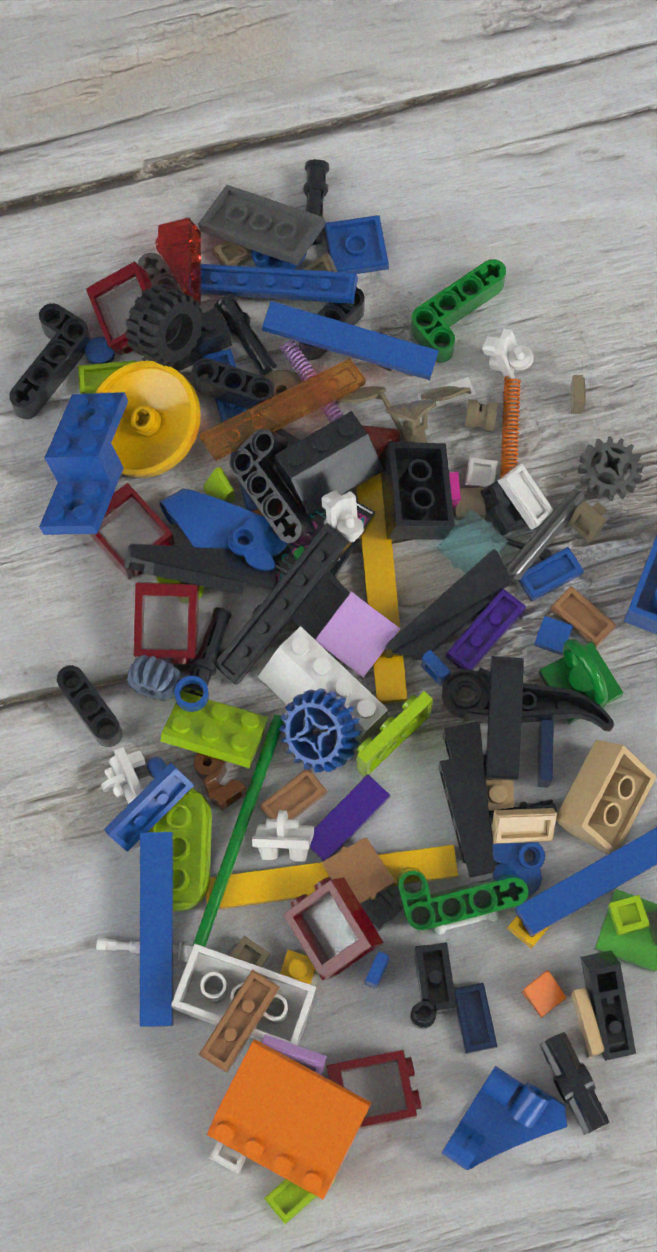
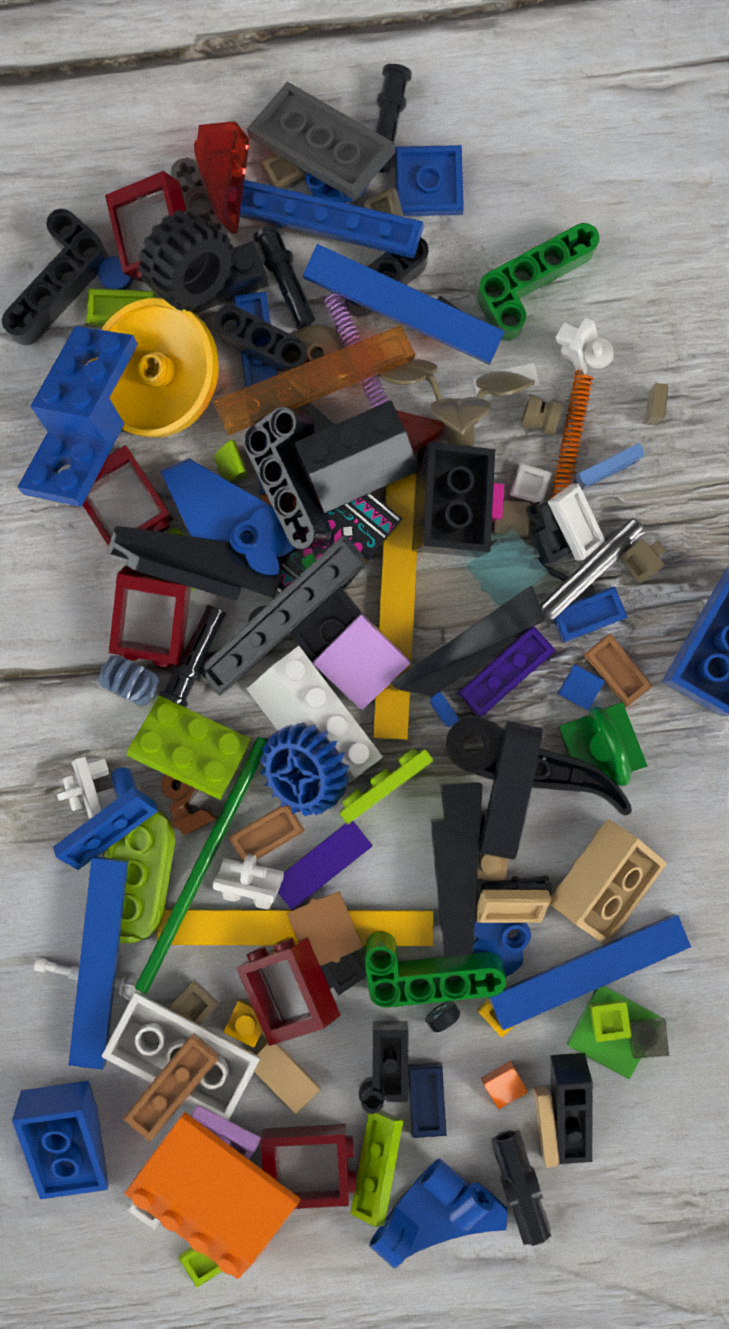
camera: 10 degrees right, 15 degrees up
(79, 696) = (41, 691): black beam -> none
(142, 1100) = (61, 1139): none -> blue slope
(191, 707) = (167, 691): blue piece -> none
(340, 1014) = (285, 1077): none -> tan tile
(342, 514) = (363, 525): white hips -> none
(377, 970) = (330, 1039): blue tile -> none
(437, 1083) = (376, 1168): none -> lime plate
(477, 936) = (443, 1016): none -> black tile
(545, 753) = (549, 824): dark blue tile -> none
(547, 448) = (610, 466): none -> medium blue tile
(605, 479) = (677, 487): dark grey gear -> none

